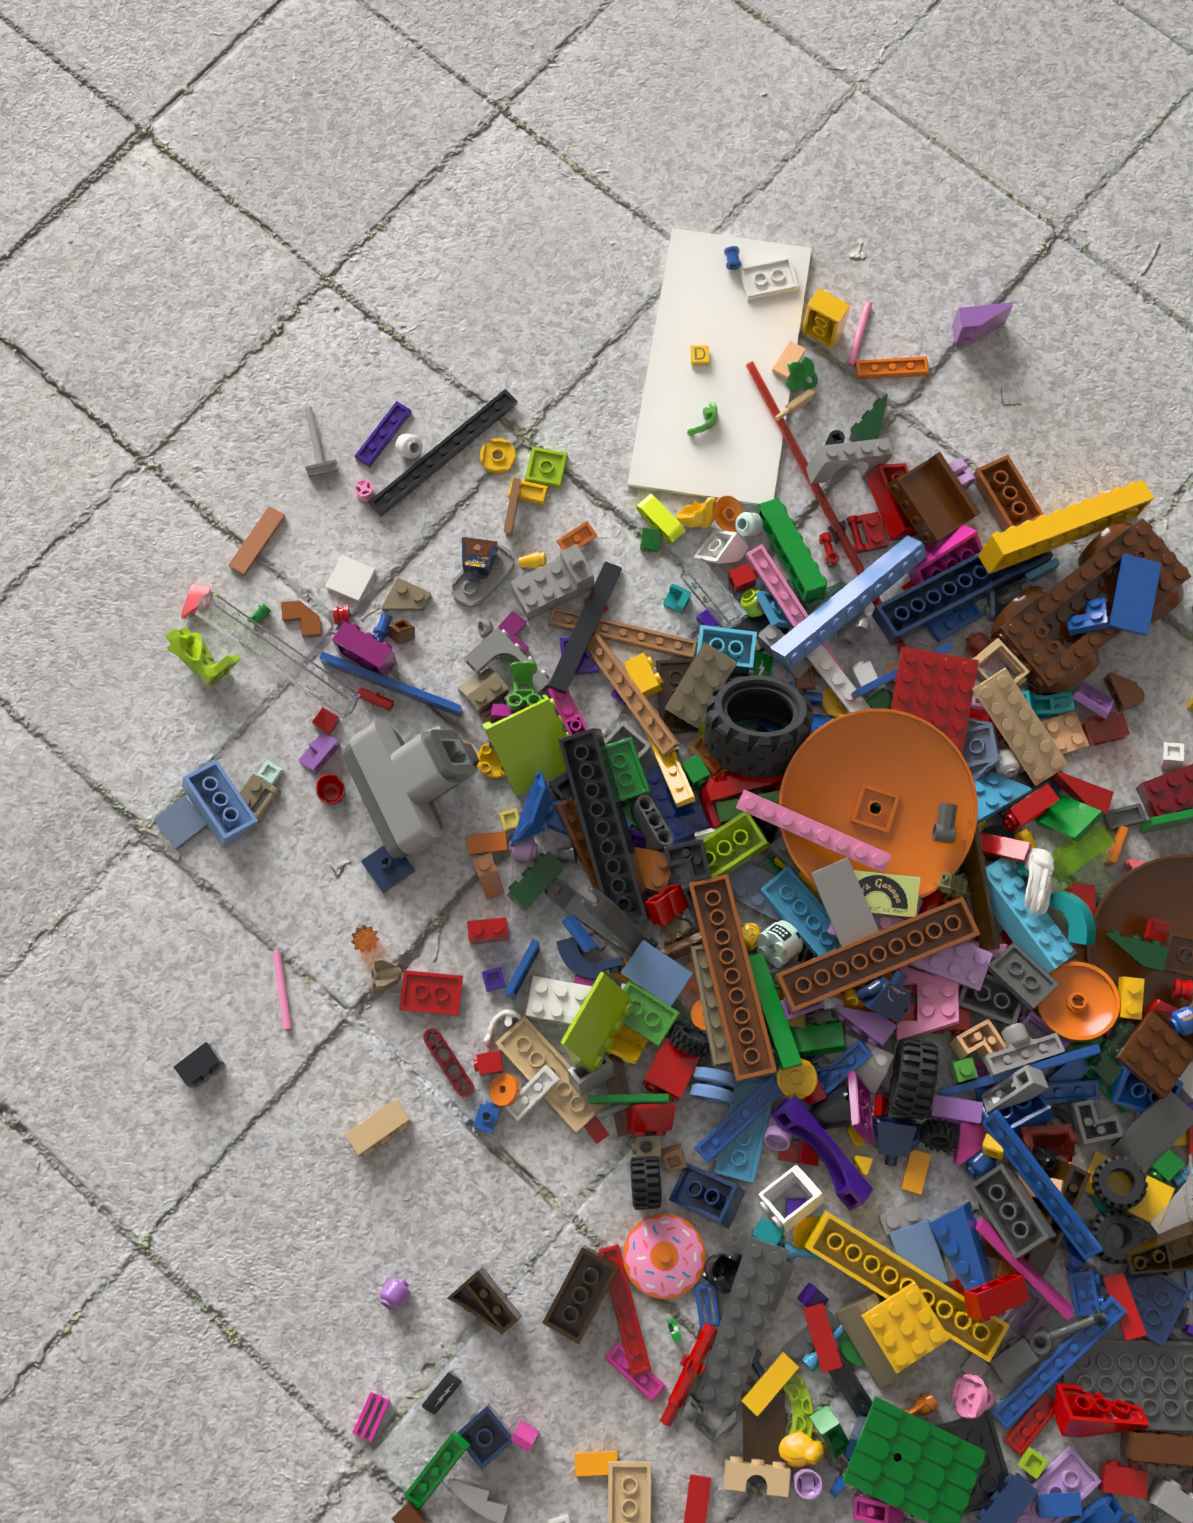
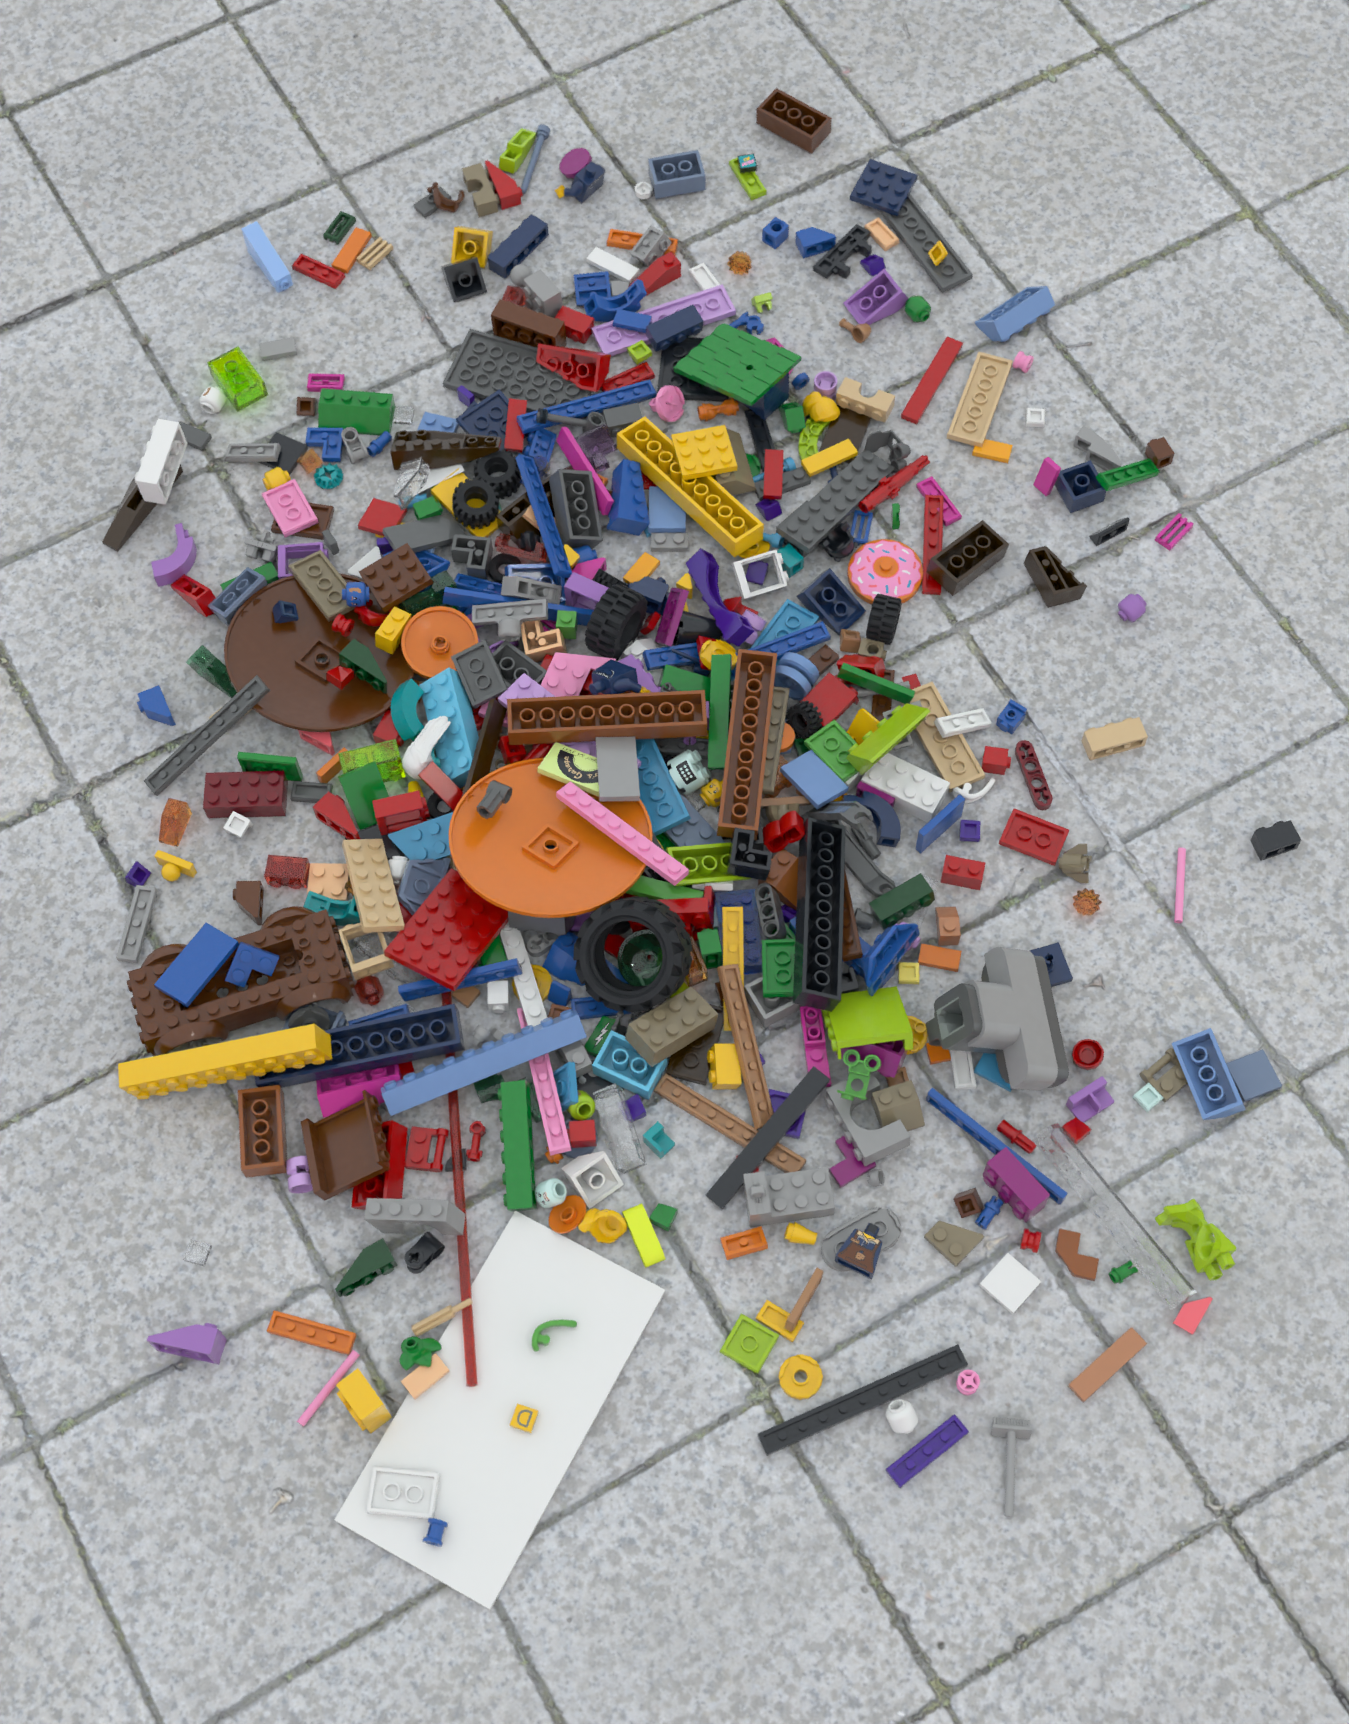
camera: 160 degrees left, 10 degrees down
(497, 1086) = (980, 732): orange piece -> none
(579, 933) = (875, 837): blue tile -> none
(696, 1121) = (824, 659): none -> reddish brown plate
(953, 885) = (508, 756): olive hinge -> none
(996, 1297) = (620, 450): red brick -> none
(1093, 699) = (284, 893): medium lavender tile -> none

